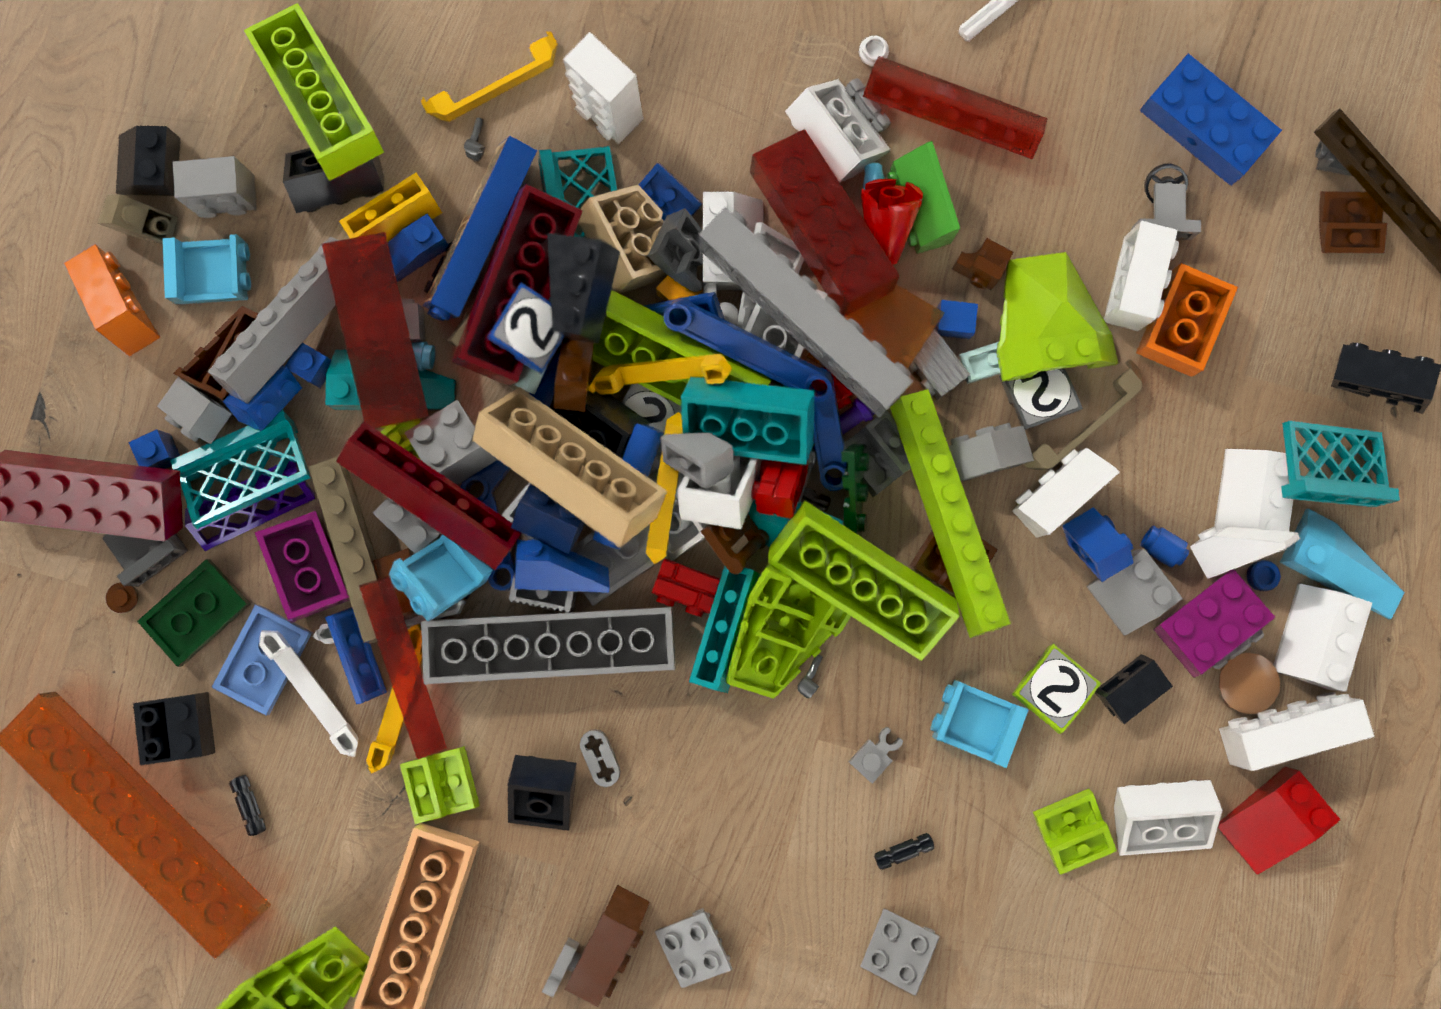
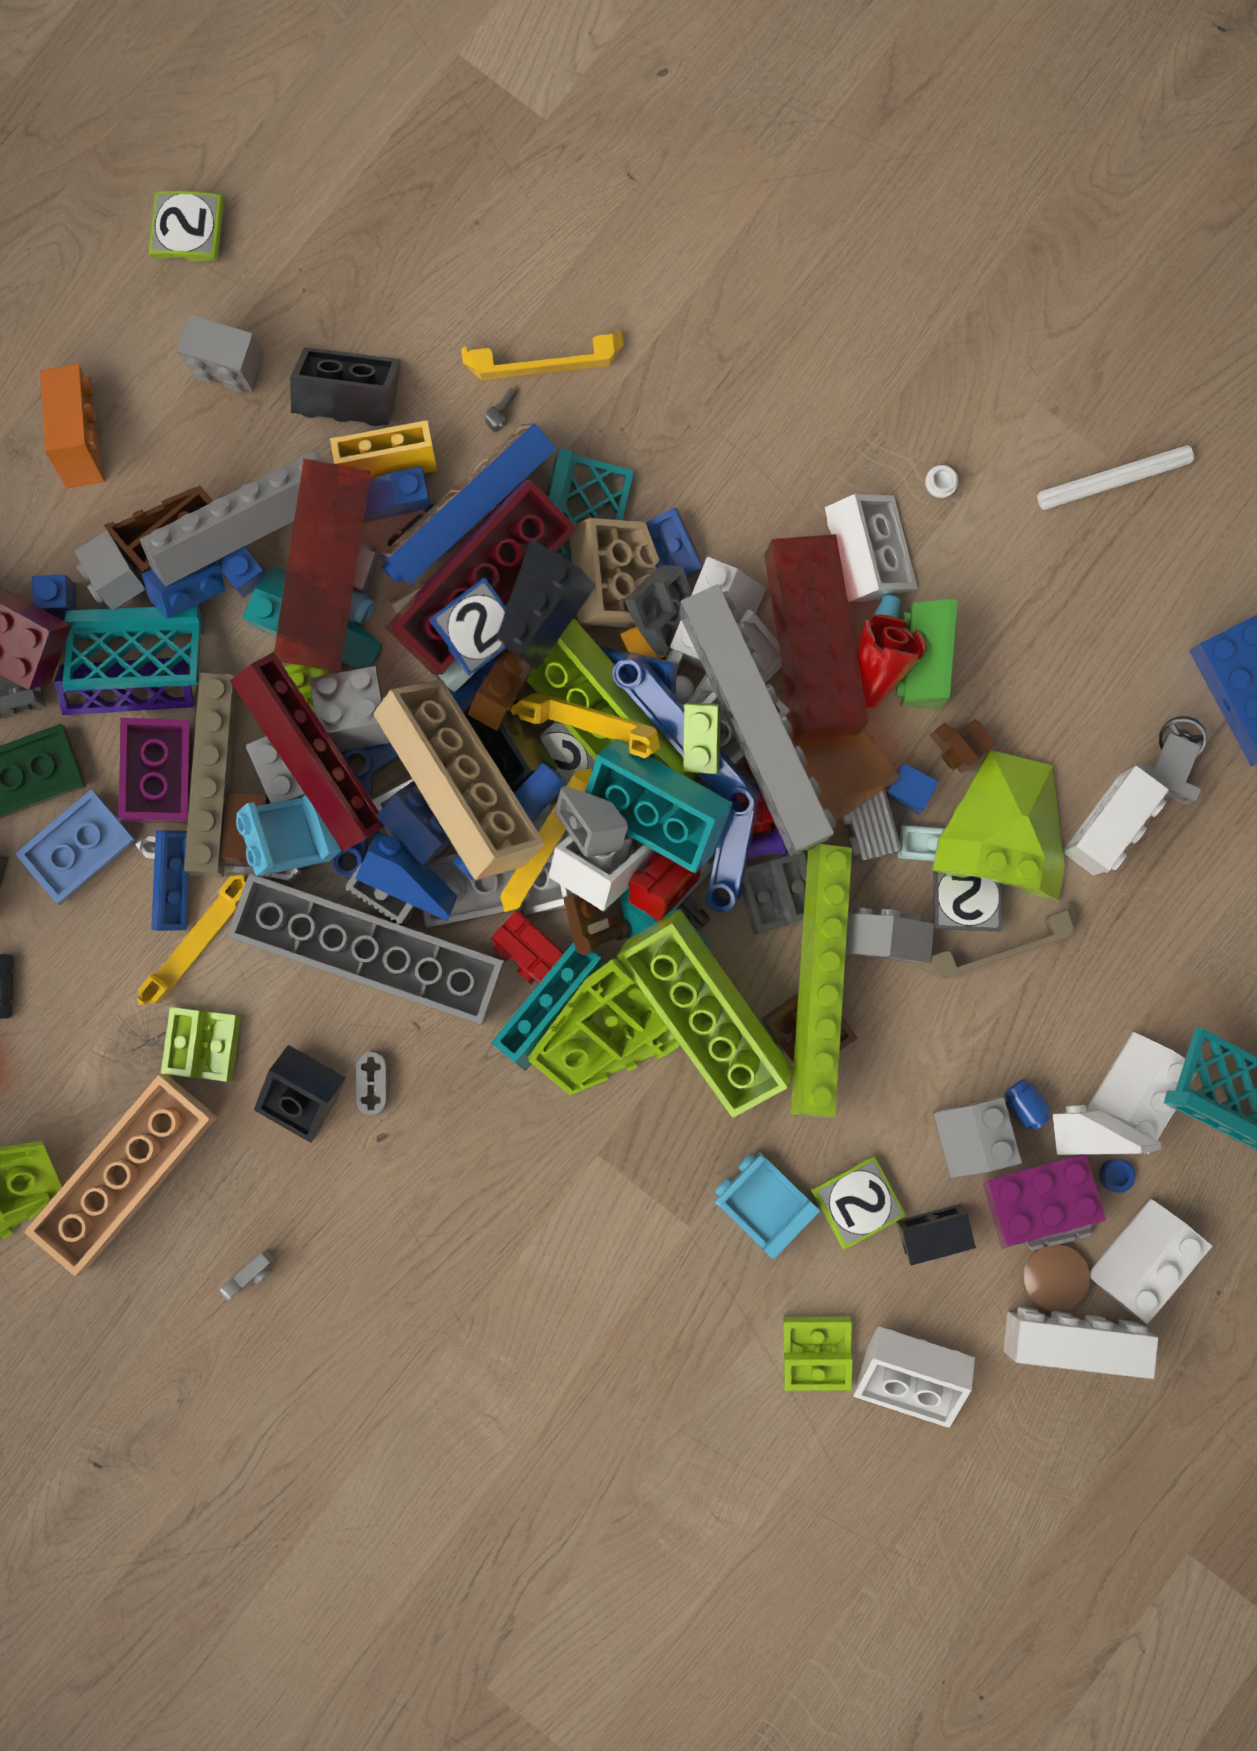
camera: 20 degrees right, 0 degrees up
(136, 219) = (129, 354): dark tan slope -> none
(142, 90) = (186, 225): none -> slope
(147, 161) = (163, 300): black slope -> none
(206, 270) = (177, 433): medium azure panel -> none
(314, 91) = (357, 299): lime brick -> none
(340, 731) = (111, 898): white piece -> none
(402, 666) = (212, 911): clear red tile -> none
(603, 88) = (647, 414): white brick -> none
(608, 947) = (302, 1273): reddish brown wedge -> none
(694, 949) = (386, 1312): light grey hinge -> none
(764, 346) = (701, 737): none -> lime plate
(806, 685) = (608, 1096): dark grey hand -> none
(858, 491) = (737, 910): dark green wing -> none
(868, 107) = (912, 534): light grey axle -> none
(872, 758) = (644, 1196): light grey plate -> none
(900, 951) = (592, 1399): light grey hinge -> none
(904, 851) = (637, 1302): black axle -> none
(955, 107) = (999, 573): clear red brick -> none
(1063, 491) = (946, 1006): white slope -> none
(1099, 544) = (960, 1073): blue brick -> none
(1189, 321) = (1145, 885): orange brick -> none
(1277, 820) = (1026, 1426): red slope -> none
(1340, 564) = (1196, 1189): medium azure wedge -> none

